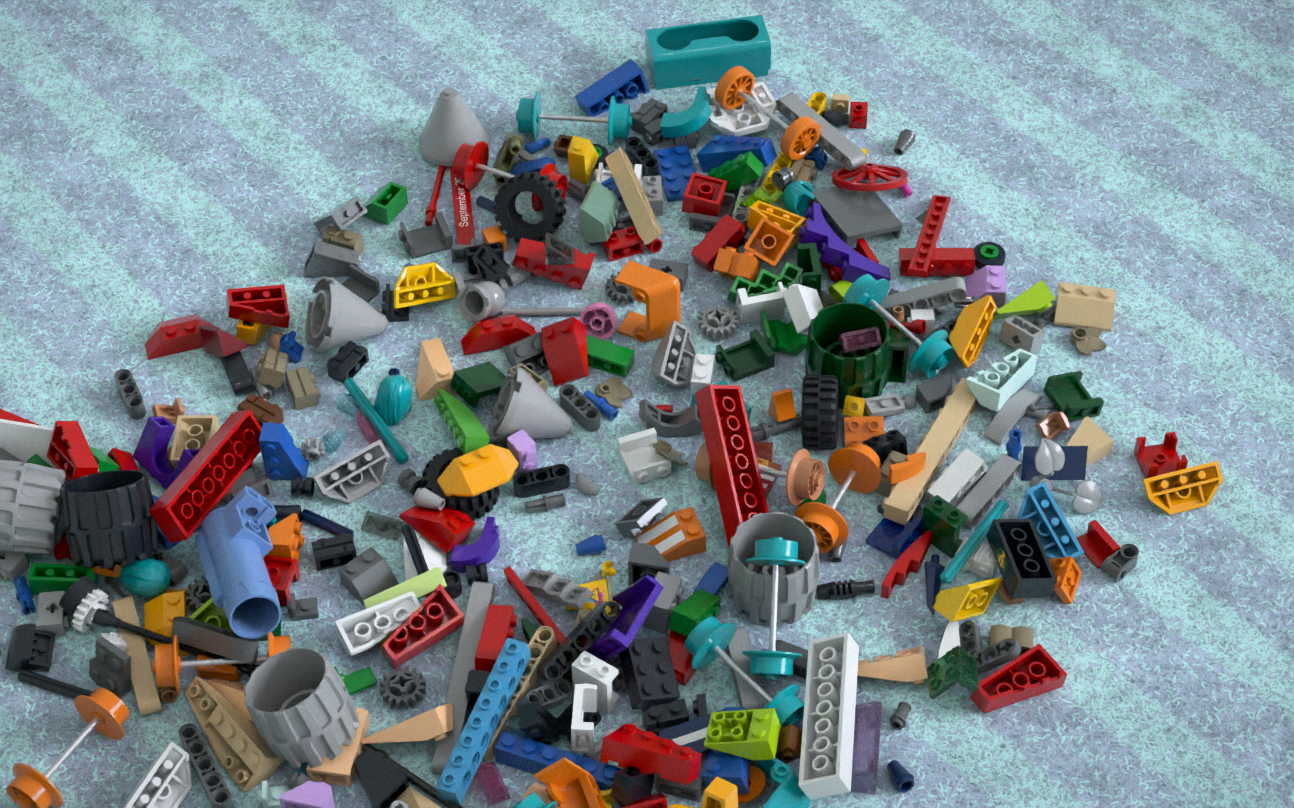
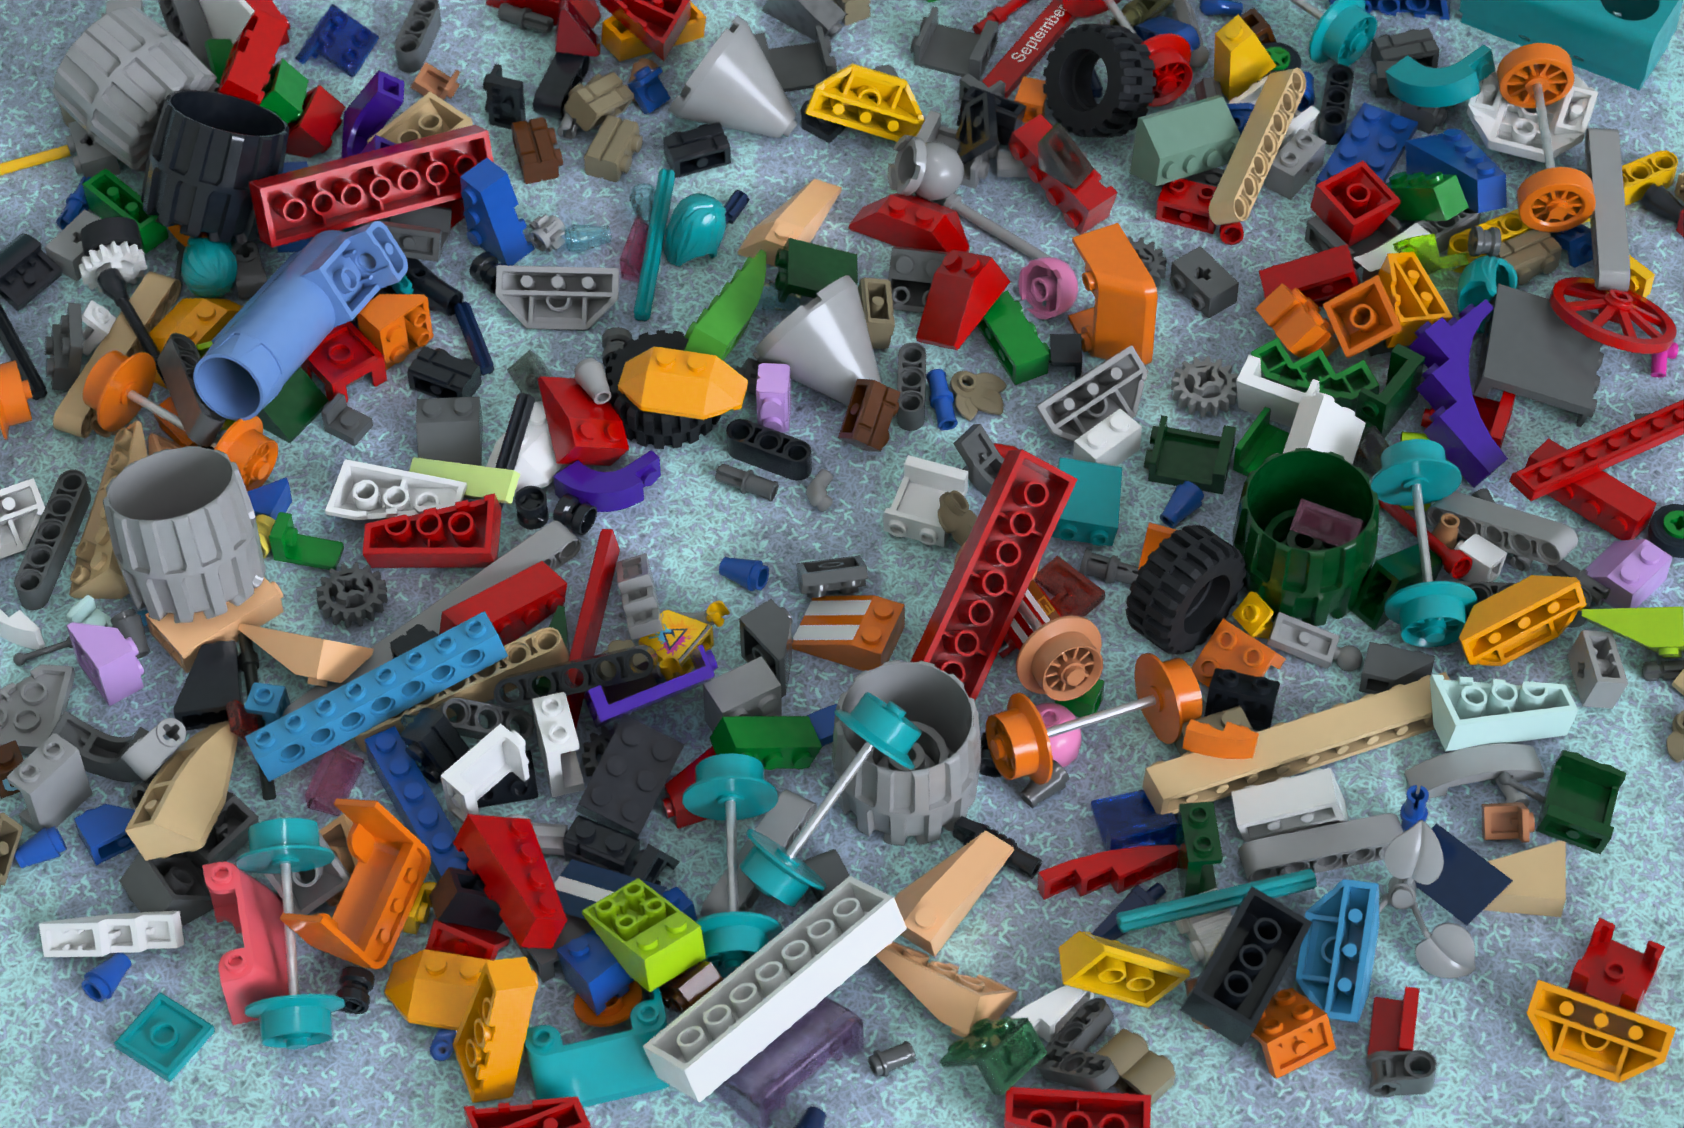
camera: 40 degrees right, 5 degrees up
(93, 421) = (339, 41): none -> clear blue bracket
(181, 352) = (525, 18): none -> dark grey axle
(221, 396) = (504, 99): none -> black bracket
(416, 785) = (240, 721): none -> clear red tile
(421, 767) = (267, 701): none -> dark azure bracket
(579, 431) = (869, 415): none -> reddish brown brick
(640, 345) = (1066, 351): none -> black panel
(741, 212) = (1374, 259): none -> white sticker
(763, 380) = (1182, 503): none -> blue cone
(849, 616) = (945, 894): none -> light nougat wedge

